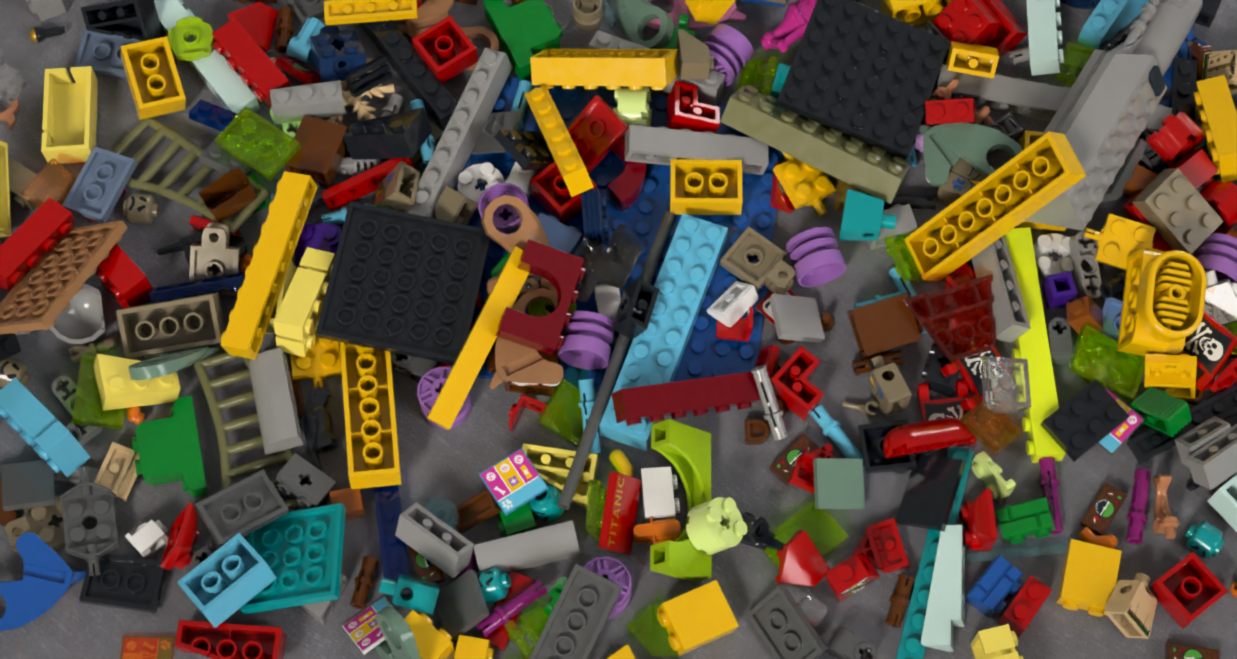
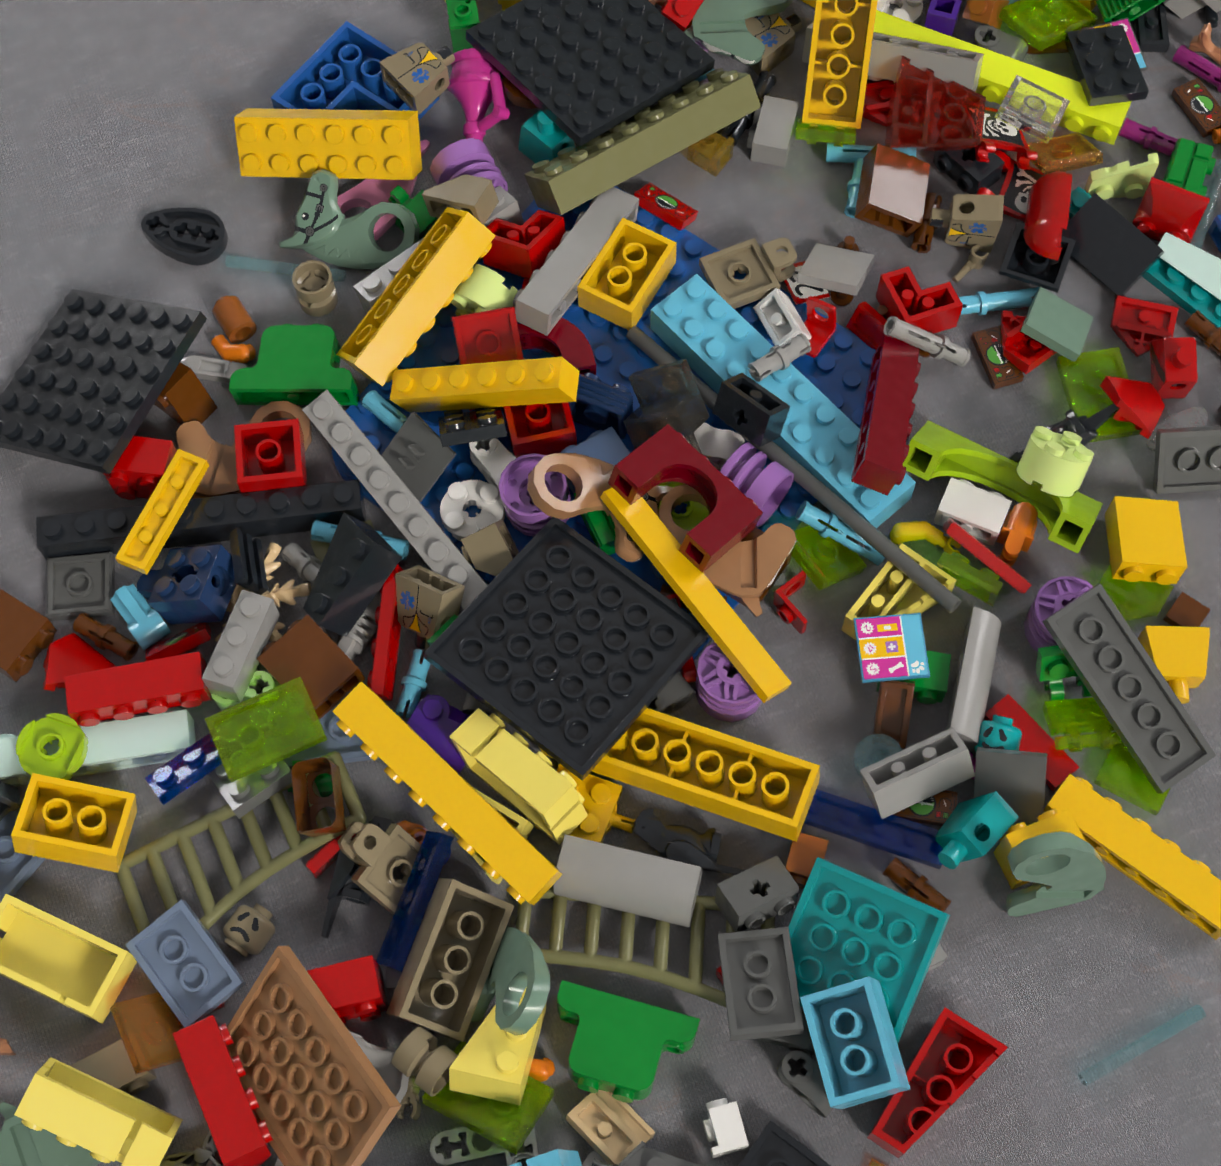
camera: 60 degrees left, 0 degrees up
(100, 340) = (425, 1060): none -> dark tan wheel
(181, 539) = (754, 1083): red slope -> none
(364, 627) = (982, 900): piece -> none
(502, 614) = (1038, 729): magenta pin -> none
(546, 505) = (934, 628): teal head -> none
(686, 307) = (779, 357): none -> light grey pin
(754, 72) = (514, 168): clear neon green plate -> none
(756, 431) = (943, 379): reddish brown tile -> none
(804, 184) = (673, 183): yellow plate -> none
(816, 257) = (775, 211): medium lavender wheel -> none
(864, 217) = (760, 140): teal torso -> none

